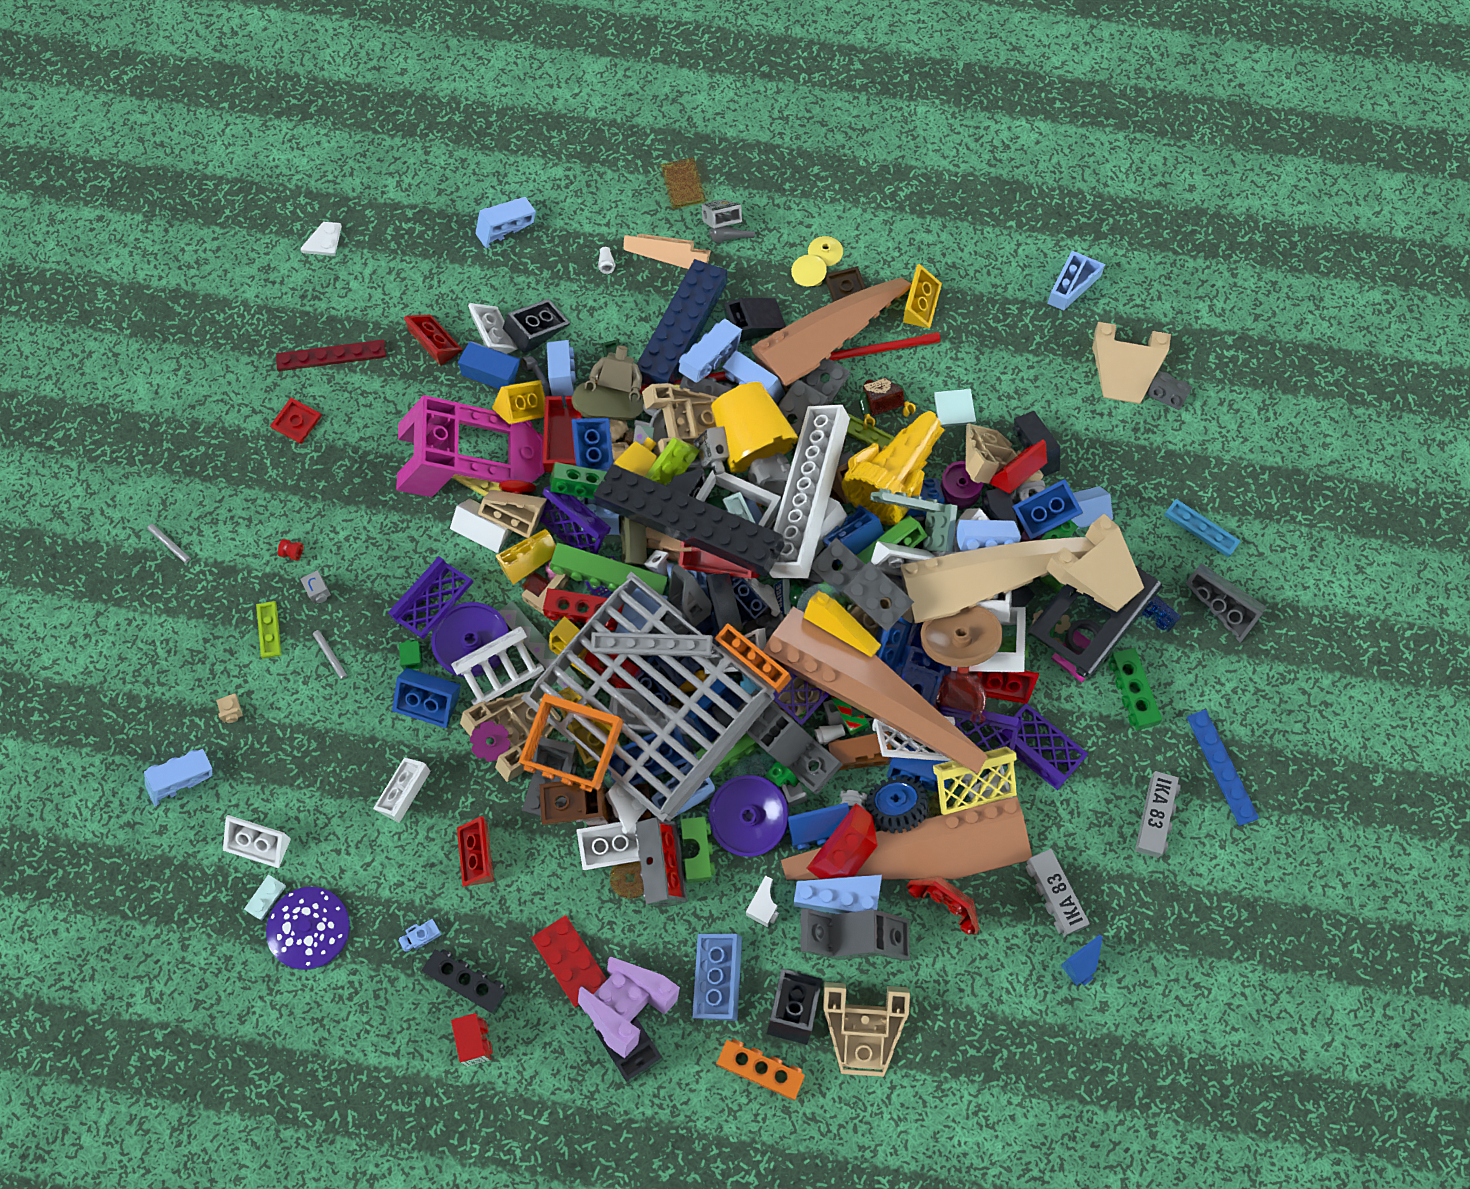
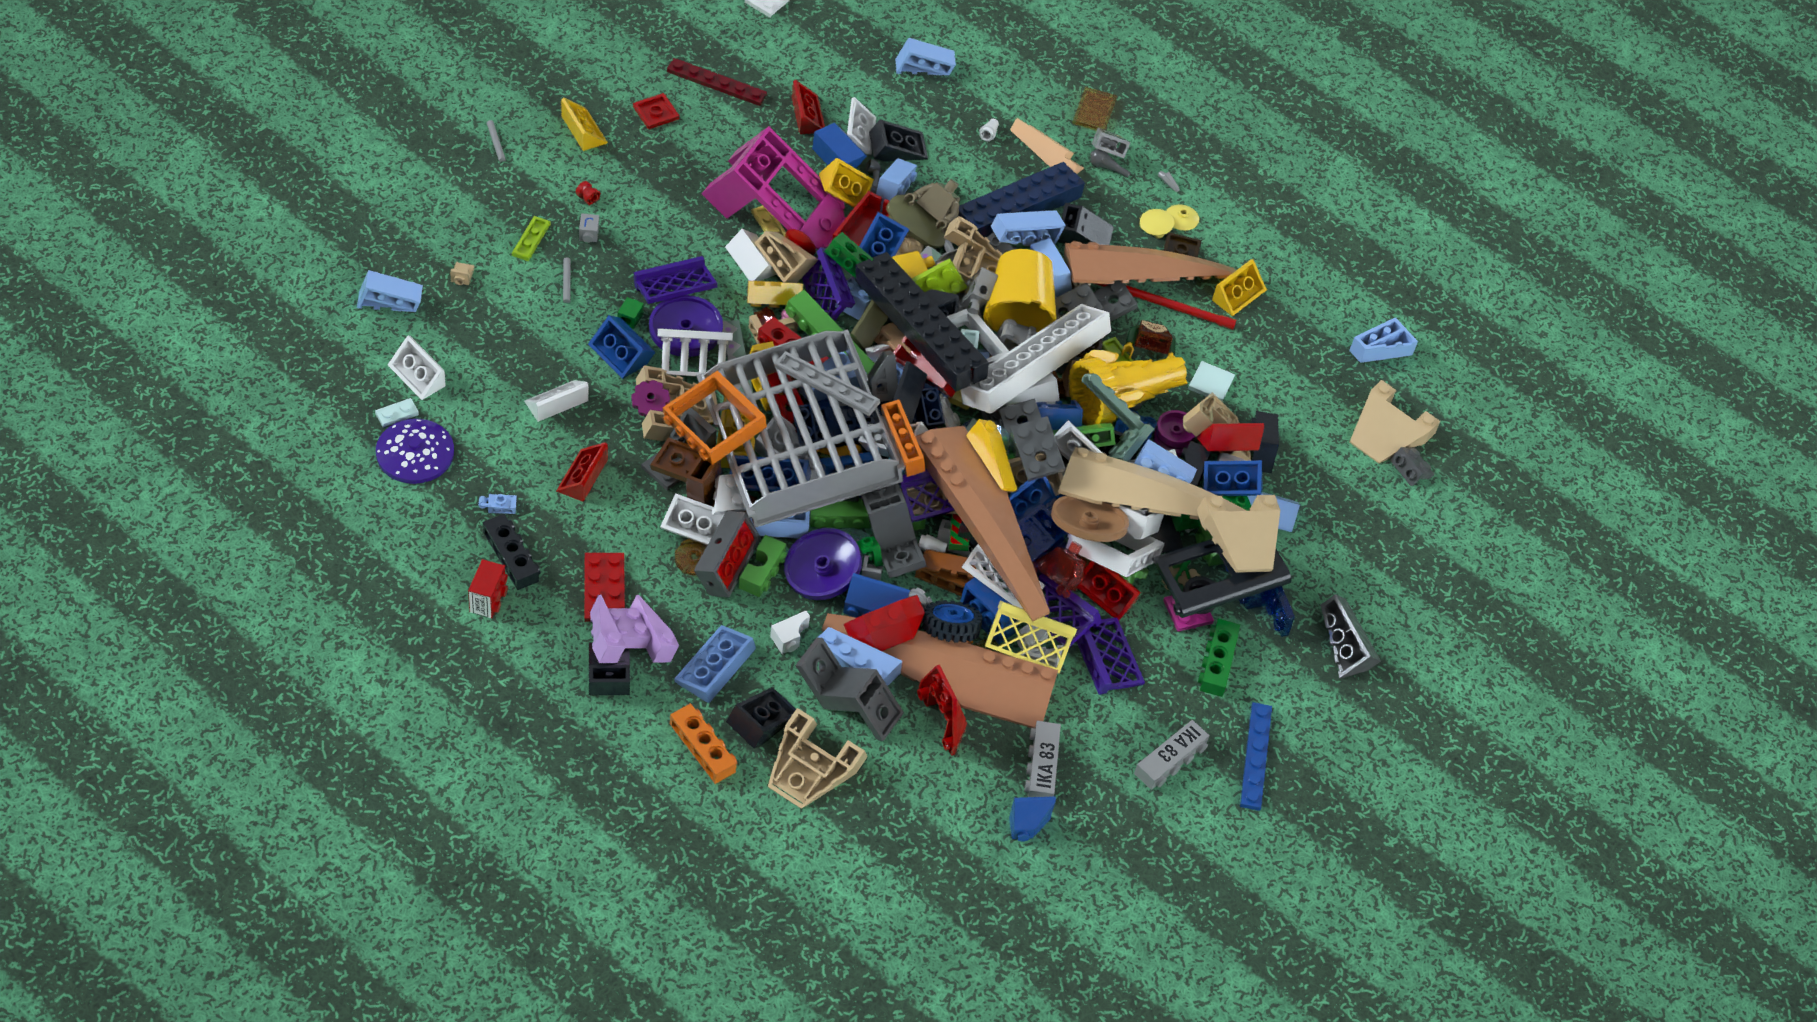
camera: 20 degrees right, 15 degrees down
(239, 478) = (581, 125): none -> yellow slope
(791, 219) = (1168, 180): none -> light grey bar
(1202, 528) = (1366, 577): dark azure plate -> none

